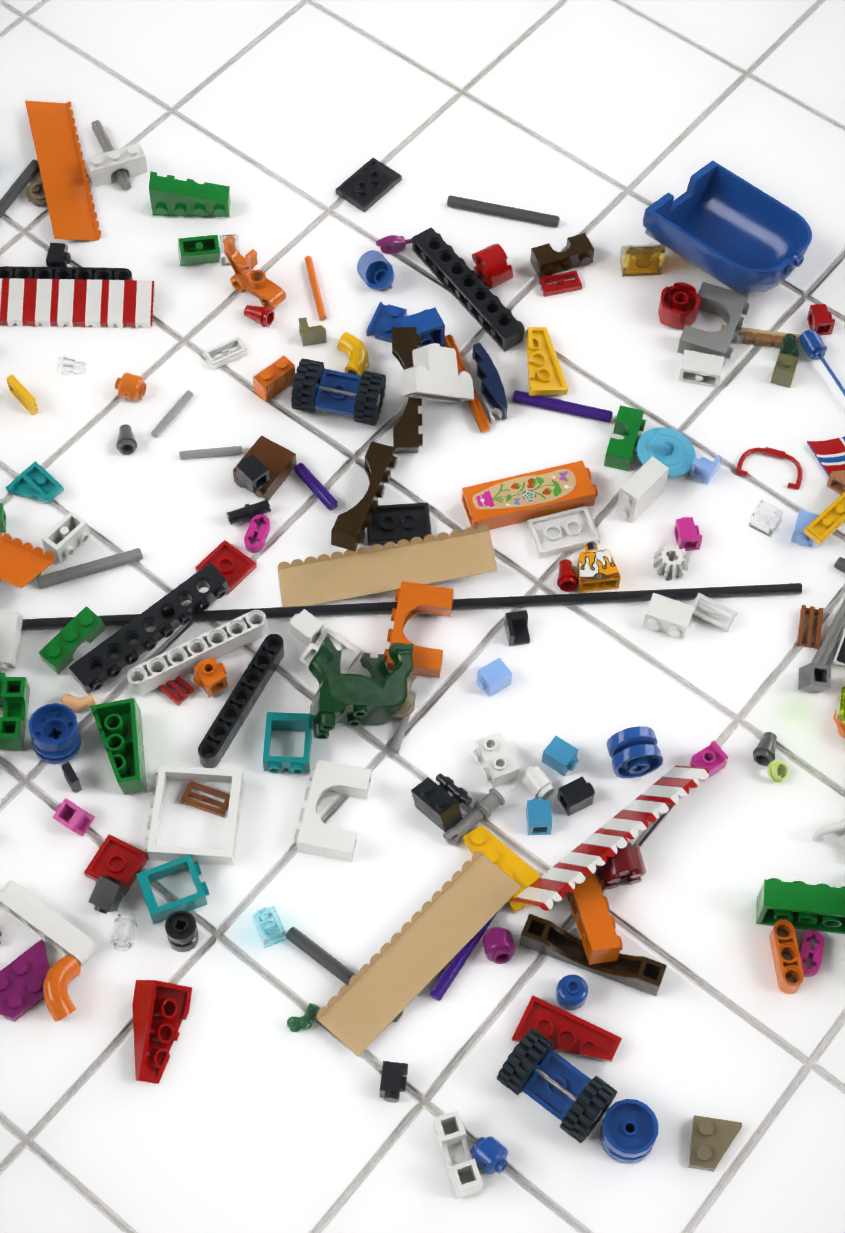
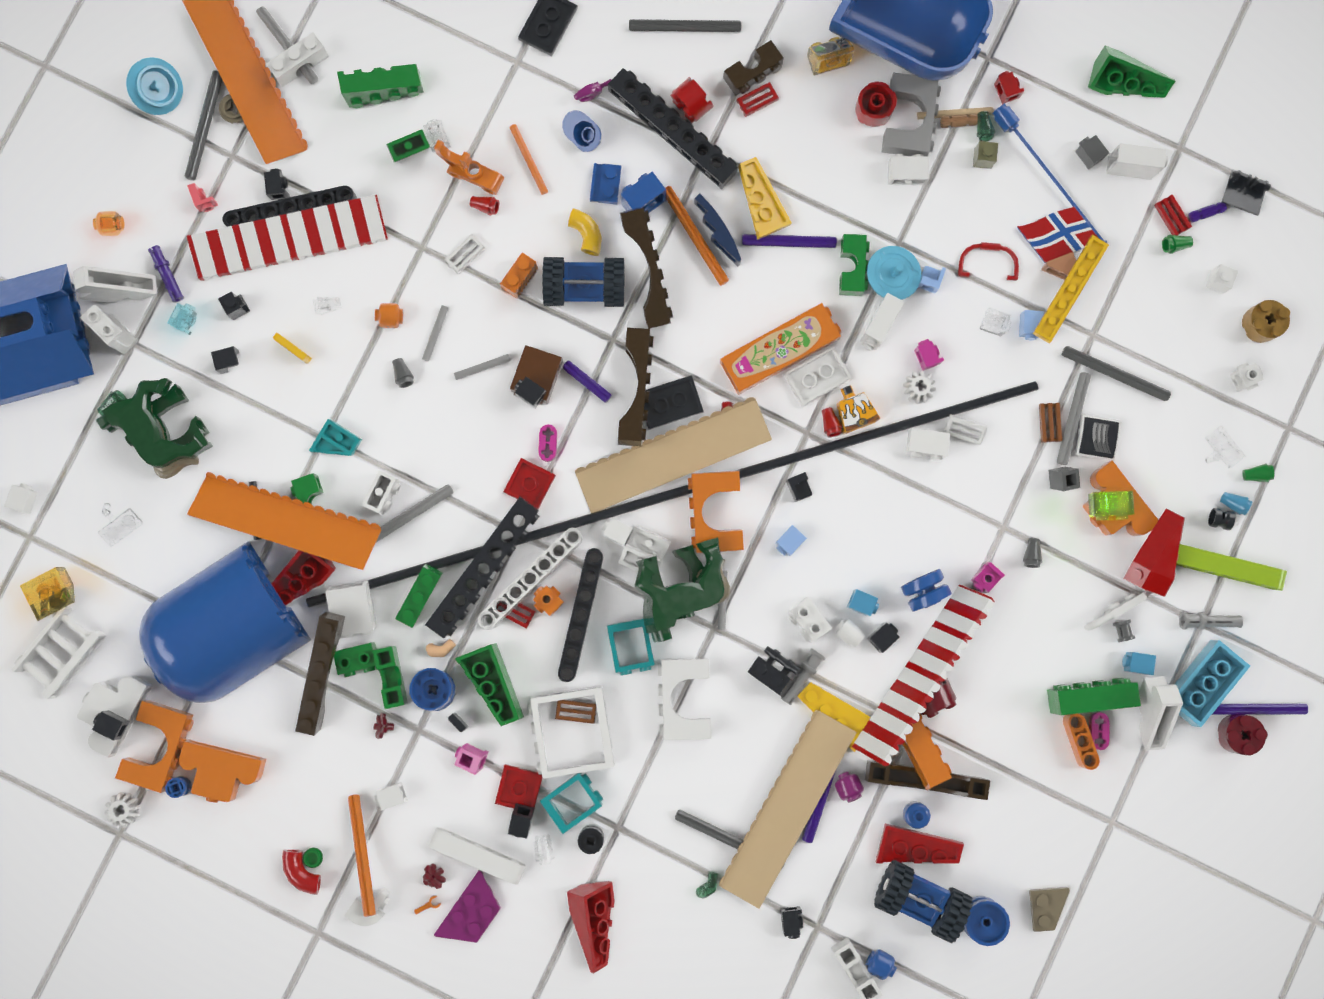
camera: 15 degrees left, 25 degrees up
(56, 987) = (504, 912): orange cylinder -> none
(248, 512) = (534, 423): black pin -> none
(273, 934) = (662, 822): clear light blue brick -> none
(311, 335) = (539, 213): olive panel -> none
(436, 376) = (671, 250): white brick -> none
(492, 411) = (725, 261): white hand -> none
(539, 817) = (856, 663): dark azure brick -> none
(777, 771) = (1046, 573): yellowish green plate -> none

